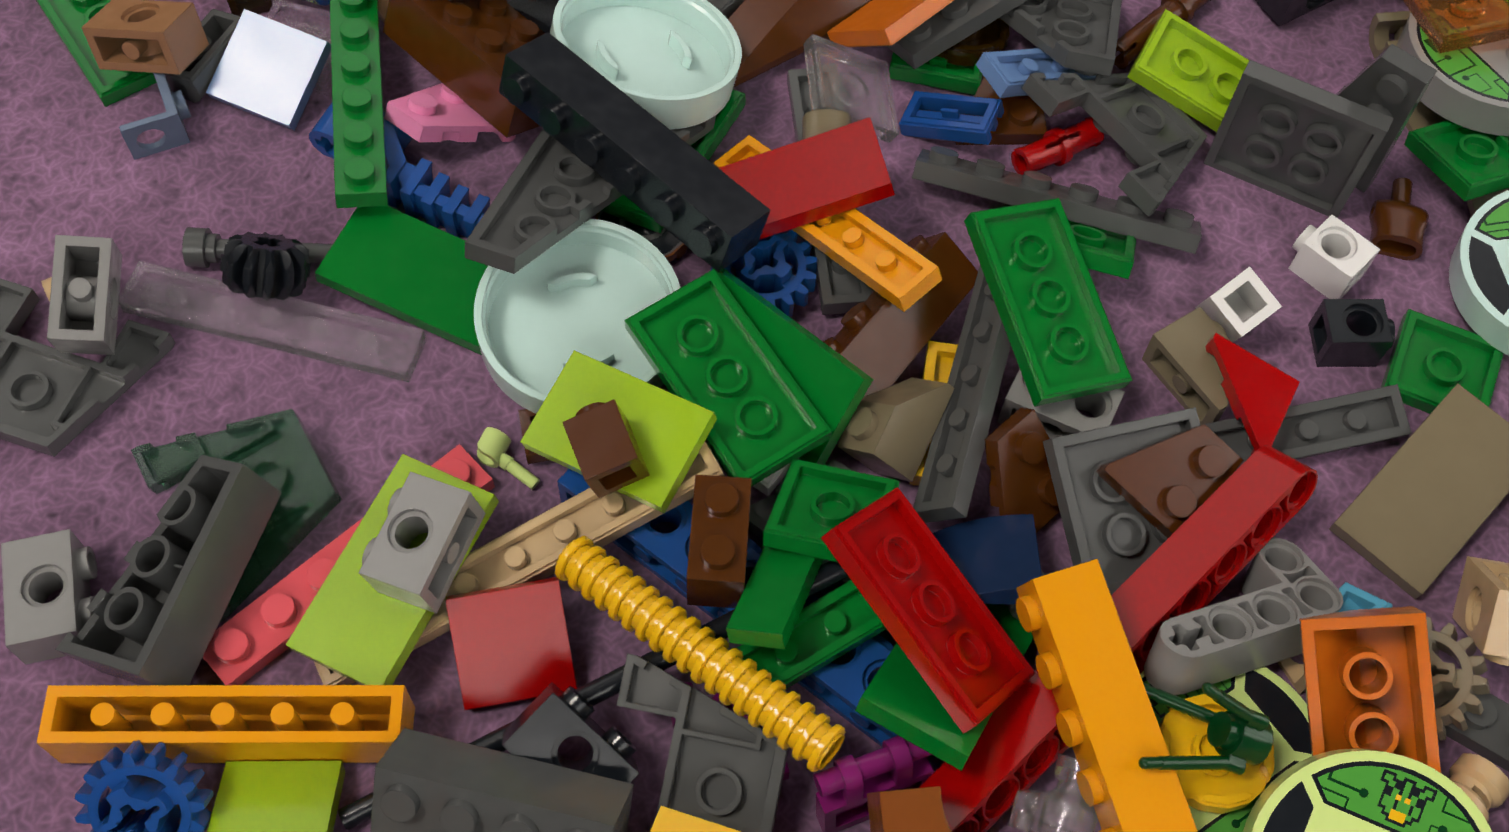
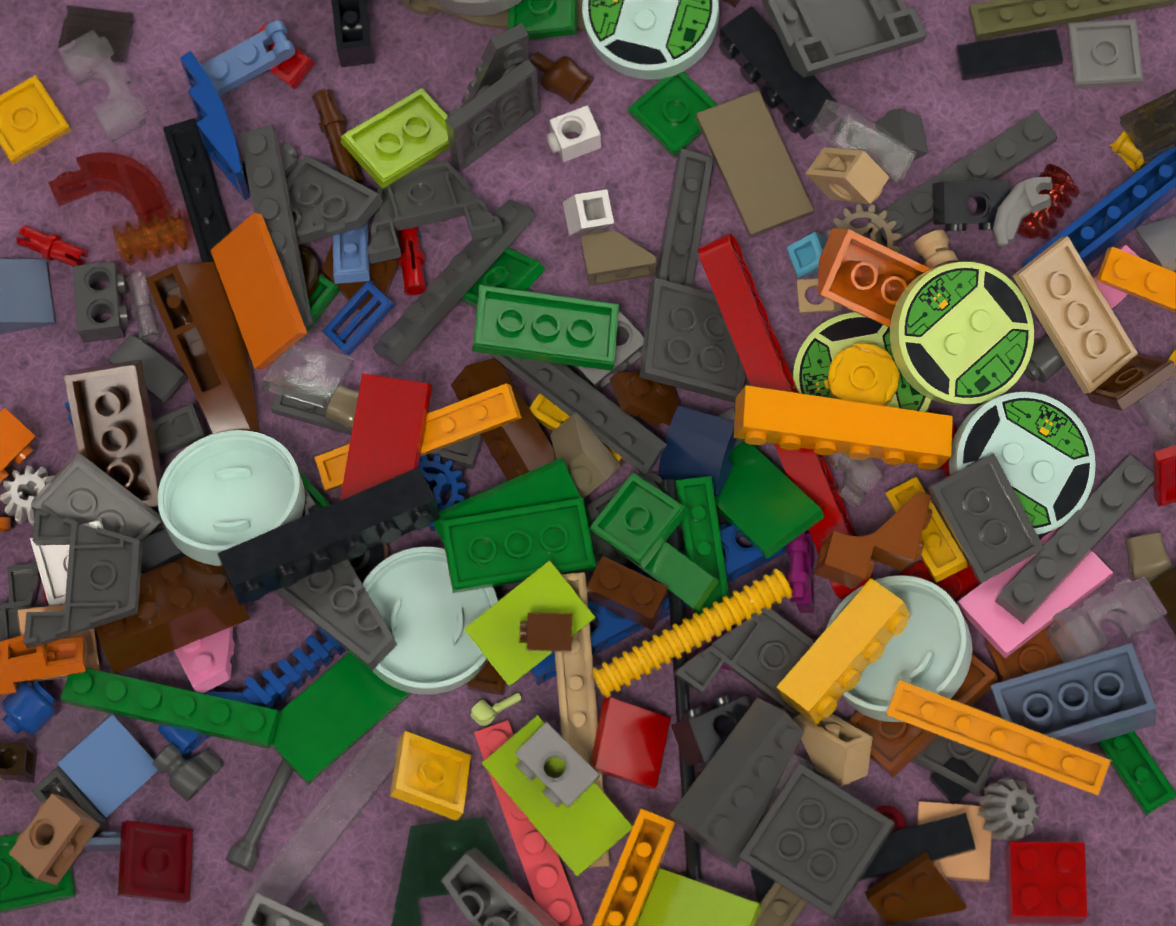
camera: 60 degrees left, 10 degrees up
(157, 153) = (155, 861): none -> dark red tile
(265, 266) = (291, 811): black gear -> none
(285, 155) = (189, 775): none -> dark grey piece
(367, 404) = (430, 775): none -> yellow plate
(929, 608) = (725, 490): red tile -> none
(1172, 476) = (693, 312): reddish brown wing -> none
(1236, 734) = (862, 363): dark green plant -> none
(1245, 629) = (795, 288): light grey beam -> none
(1254, 389) = (657, 236): red tile -> none
(1351, 332) = (631, 166): black brick -> none

